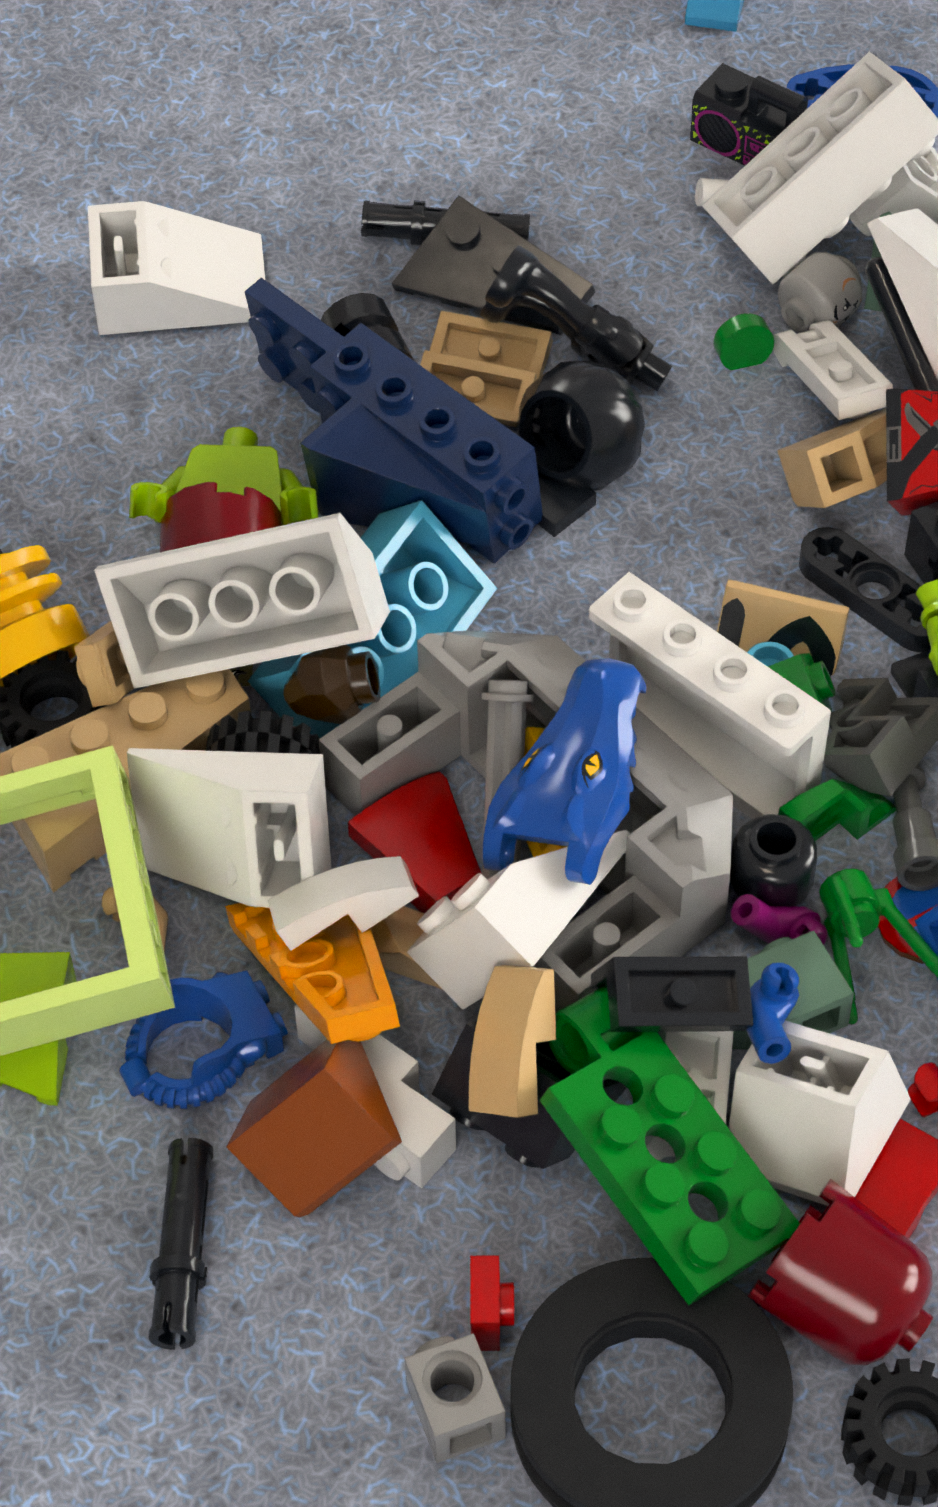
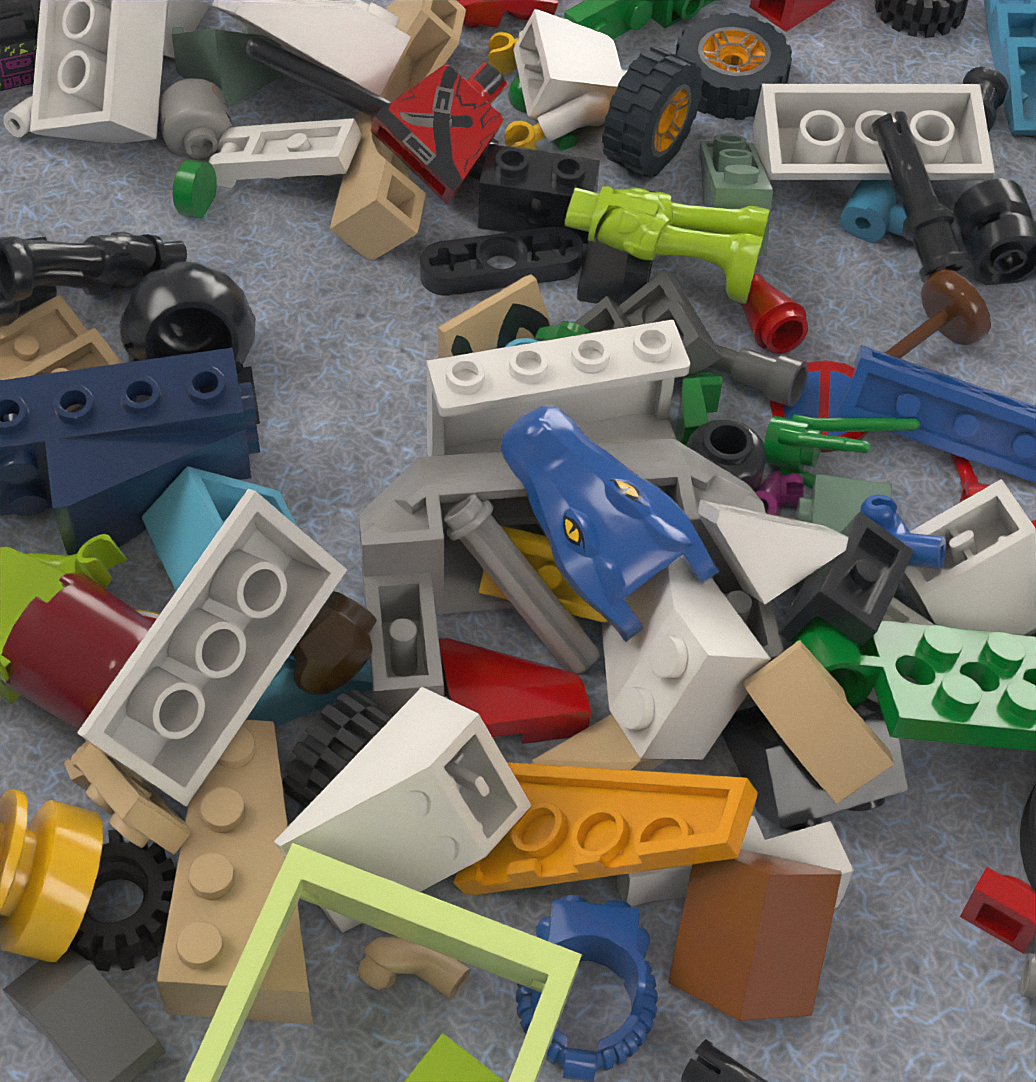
camera: 60 degrees left, 0 degrees up
(361, 889) = (556, 771): white slope -> none
(643, 902) = (767, 549): none -> white slope

